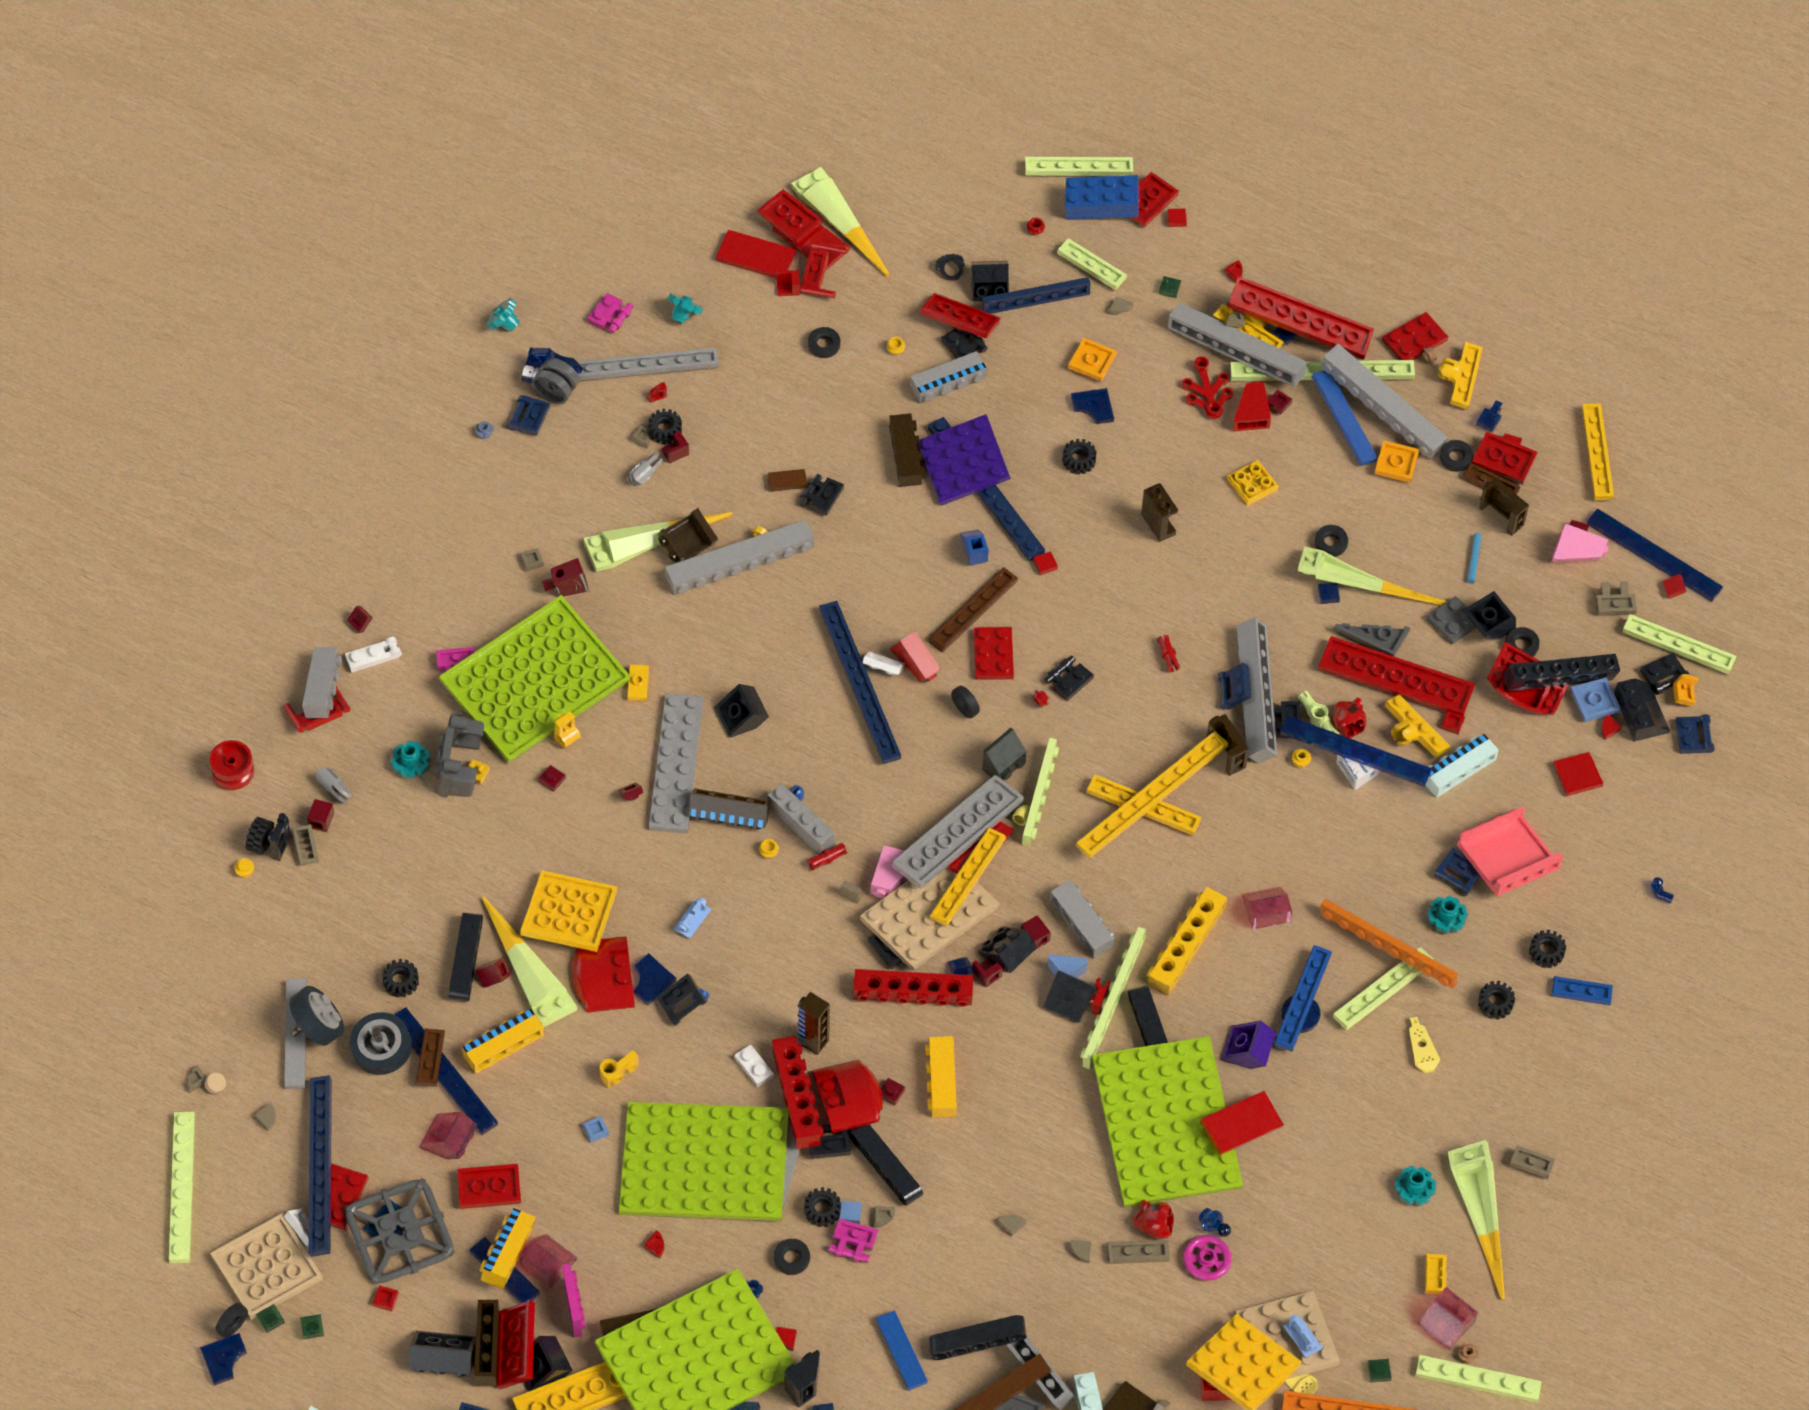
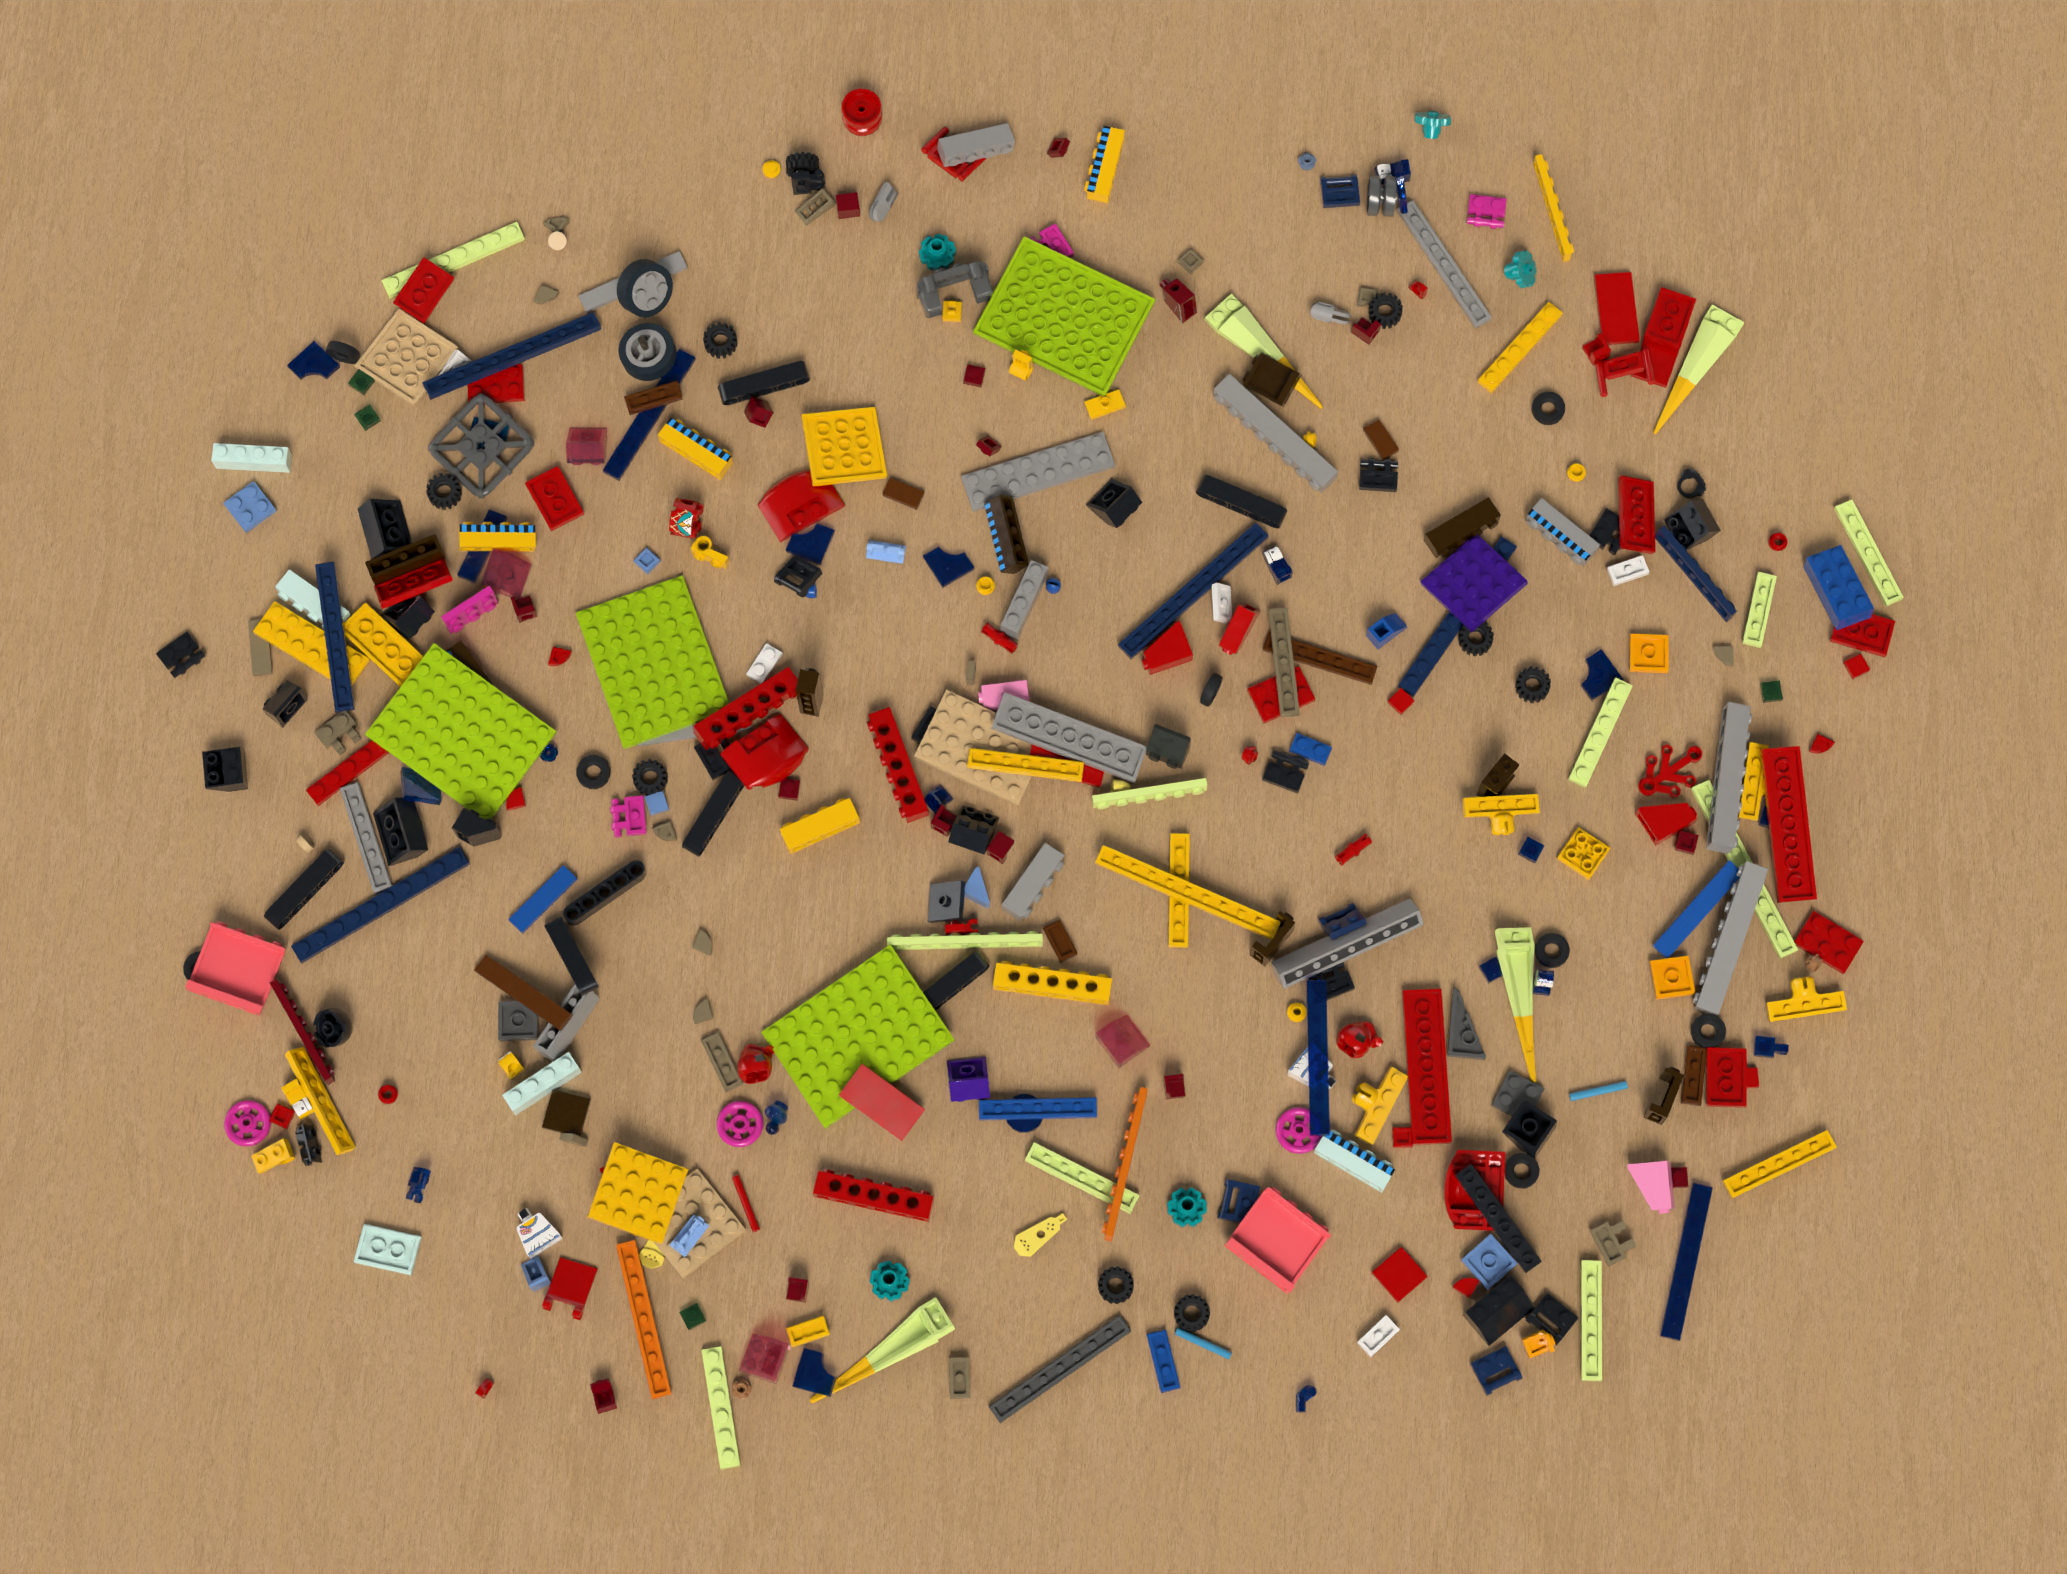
camera: 70 degrees right, 15 degrees up
(204, 1221) = (423, 290): none -> red plate
(373, 655) = (1029, 175): white plate -> none
(385, 1298) = (418, 463): red tile -> none
(398, 587) = (1105, 164): none -> yellow brick
(429, 1295) = (446, 501): none -> black tyre
(542, 989) = (760, 459): yellowish green plate -> none
(574, 1072) = (685, 518): none -> red brick
(590, 1257) = (523, 608): none -> dark red panel
(634, 261) = (1551, 201): none -> yellow plate
(640, 882) = (903, 493): none -> reddish brown tile
(732, 874) = (947, 567): none -> clear blue tile
(754, 340) = (1520, 347): none -> yellow plate
(792, 609) = (1241, 501): none -> black beam
(868, 606) = (1277, 565): none -> clear blue leg
(908, 722) = (1168, 651): none -> red slope
(918, 1281) = (609, 884): none -> black beam
(968, 633) = (1283, 662): none -> dark tan plate
(1008, 344) = (1628, 570): none -> white plate
(1016, 490) = (1480, 648): none -> black tyre
(1057, 650) = (1310, 749): none -> blue plate
(1148, 424) = (1600, 732): none -> yellowish green plate
(1148, 920) = (1060, 941): none -> reddish brown tile
(1187, 525) = (1501, 810): none -> yellow plate
(1232, 518) = (1531, 850): none -> clear blue plate
(1235, 319) = (1752, 763): dark tan tile -> none
(1303, 1208) = (900, 1208): none -> red brick
(1305, 1283) = (745, 1203): none -> red bar
(1316, 709) = (1352, 1002): yellowish green pin -> none
(1329, 881) = (1174, 1086): none -> dark red panel
(1358, 554) = (1543, 982): none -> clear blue leg
(1392, 1266) = (797, 1289): none -> dark red panel
(1410, 813) = (1283, 1134): none -> dark pink plate
(1479, 1285) = (812, 1374): none -> clear blue tile
(1556, 1078) = (1059, 1369): none -> dark grey tile
(1578, 952) = (1203, 1343): none -> dark azure bar
(1628, 810) = (1378, 1336): none -> white plate
(1674, 586) = (1656, 1293): red tile -> none

